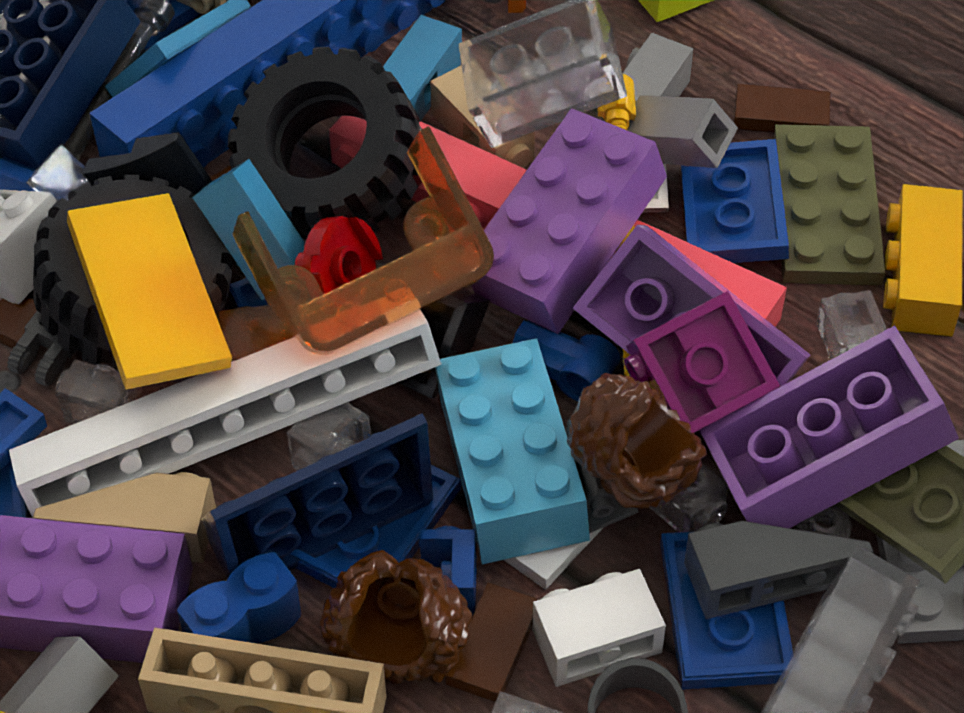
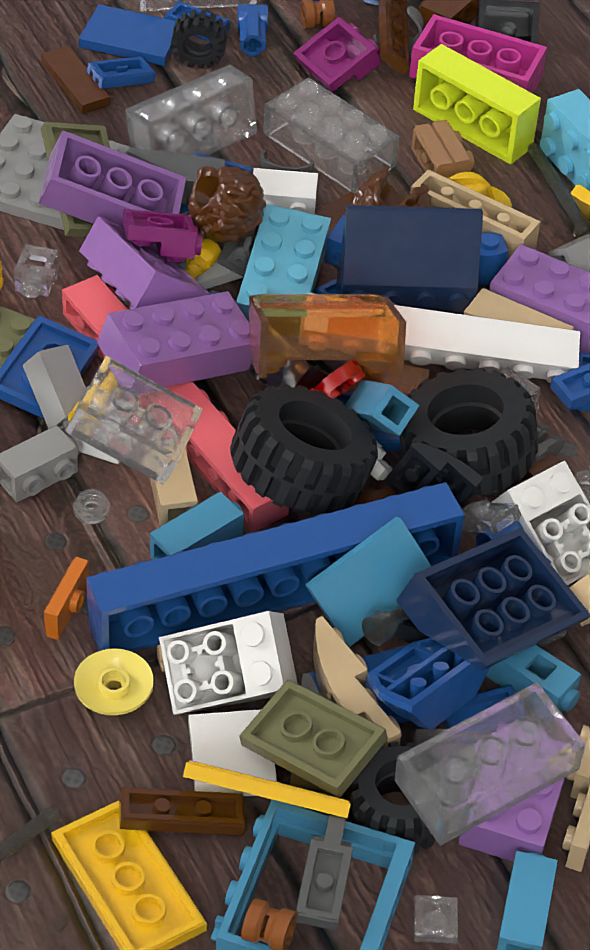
camera: 160 degrees left, 5 degrees down
(148, 291) = (468, 375): yellow tile -> none

